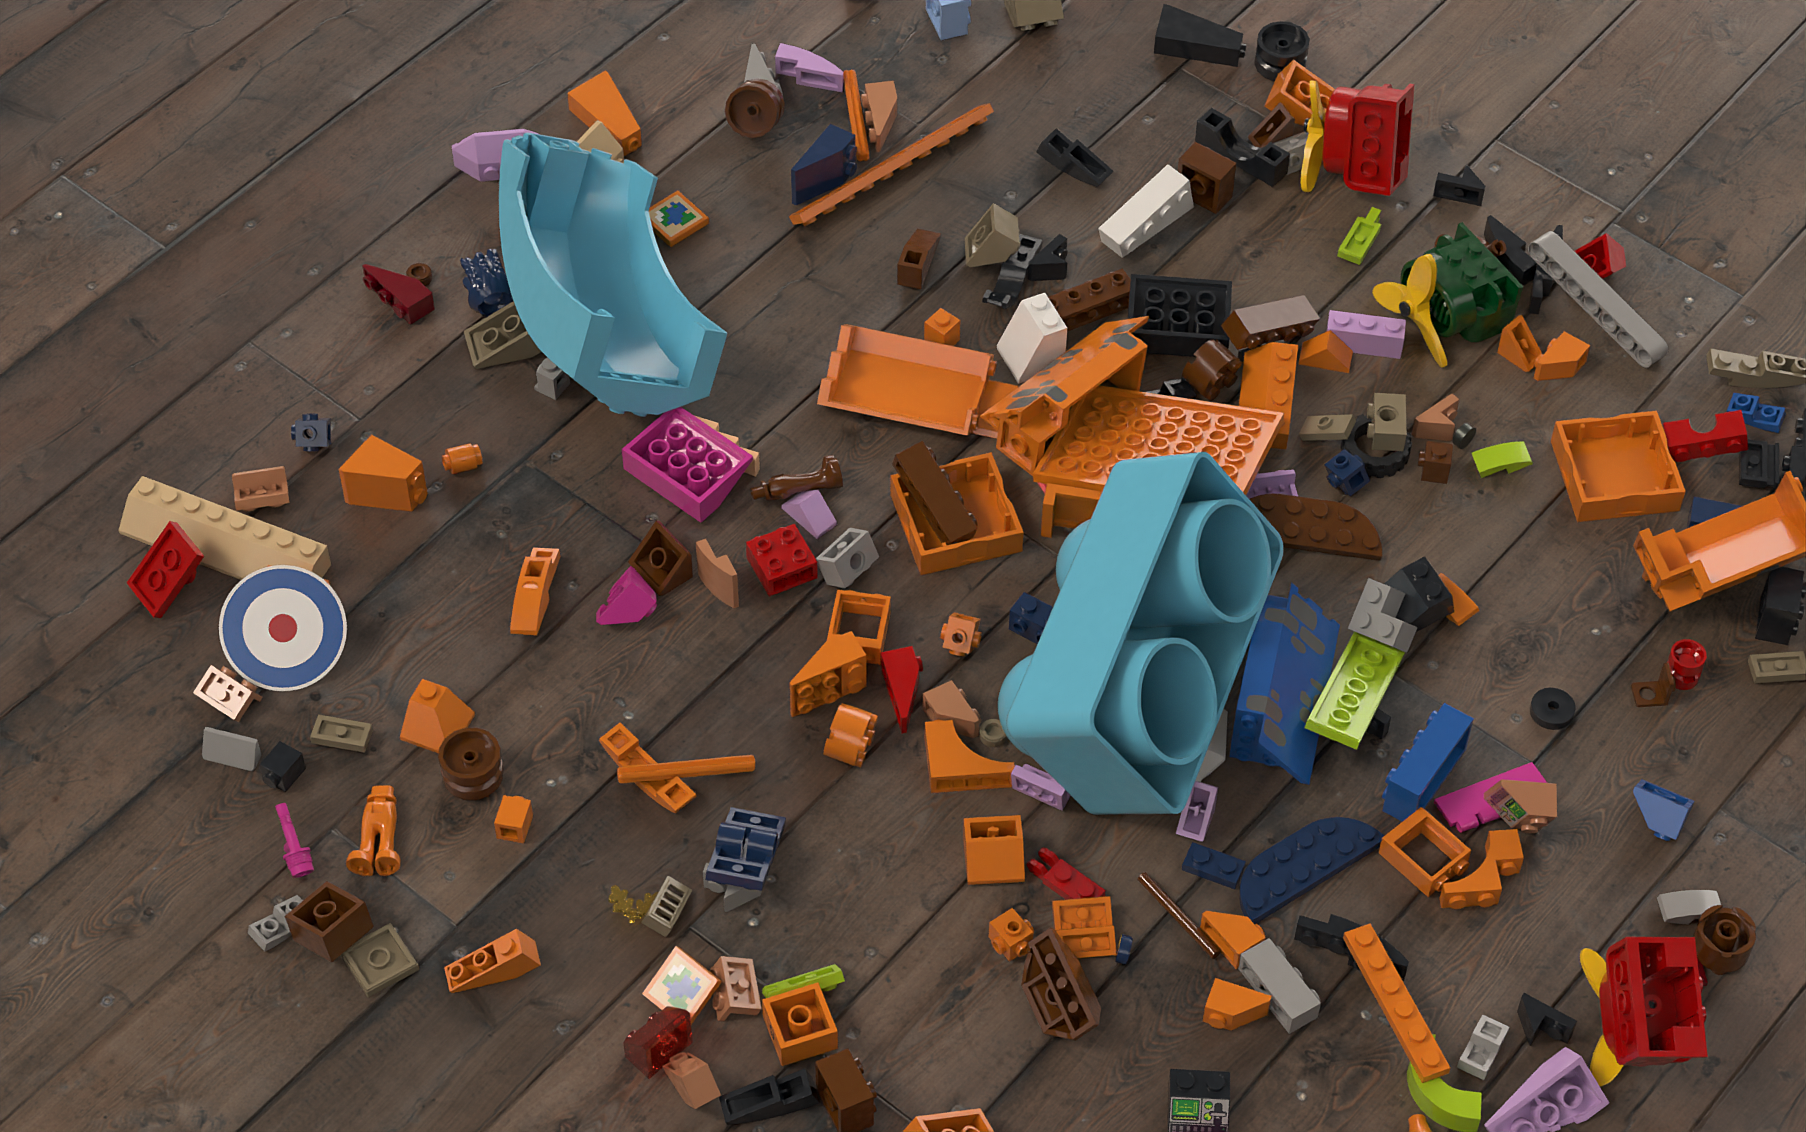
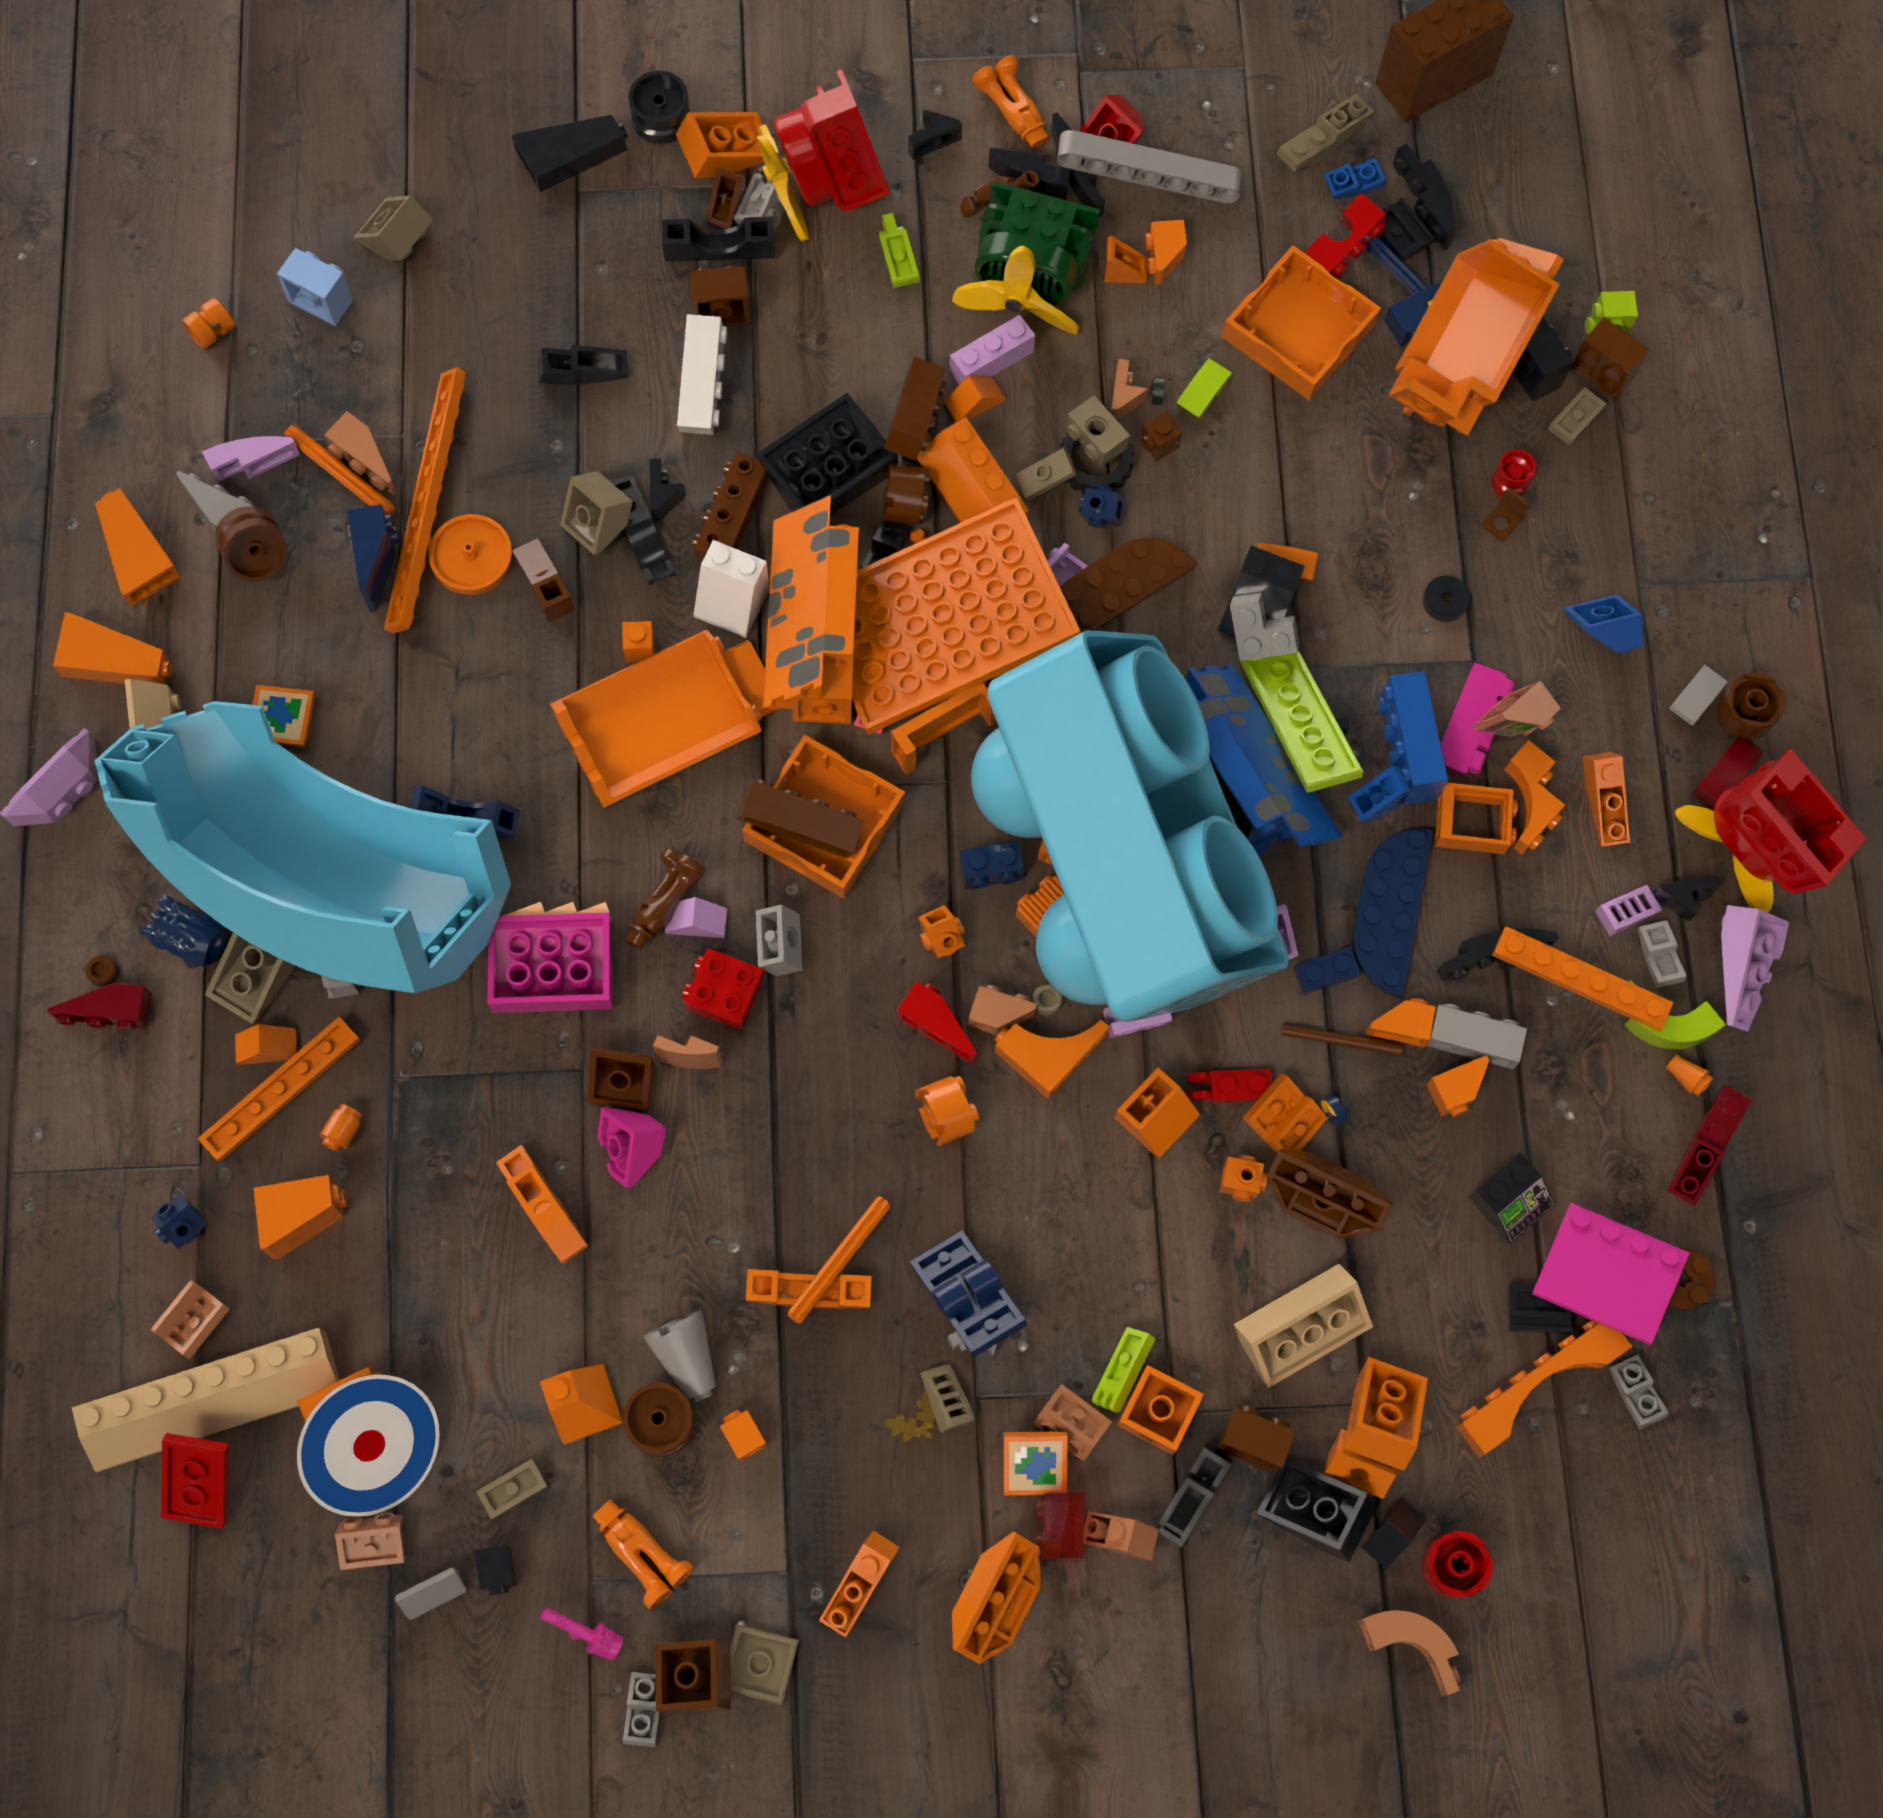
camera: 45 degrees left, 20 degrees up
(449, 411) = (279, 1089): none -> orange plate
(470, 382) = (265, 1044): none -> orange slope
(529, 738) = (685, 1354): none -> light grey cone
(569, 1046) = (996, 1598): none -> orange wedge
(683, 70) = (134, 552): none -> orange slope
(736, 358) = (502, 815): none -> dark blue arch
(830, 674) = (878, 1053): orange slope -> none
(871, 605) = (866, 1020): orange window -> none
(888, 214) = (470, 554): none -> orange piece
(958, 1061) = (1304, 1325): none -> tan slope
(1362, 779) = (1380, 795): none -> blue arch
(1476, 1006) = (1609, 920): none -> lavender slope
(1538, 217) = (1022, 114): none -> orange piece
(1544, 916) = (1607, 797): none -> orange slope
(1731, 479) = (1396, 266): none -> dark blue axle

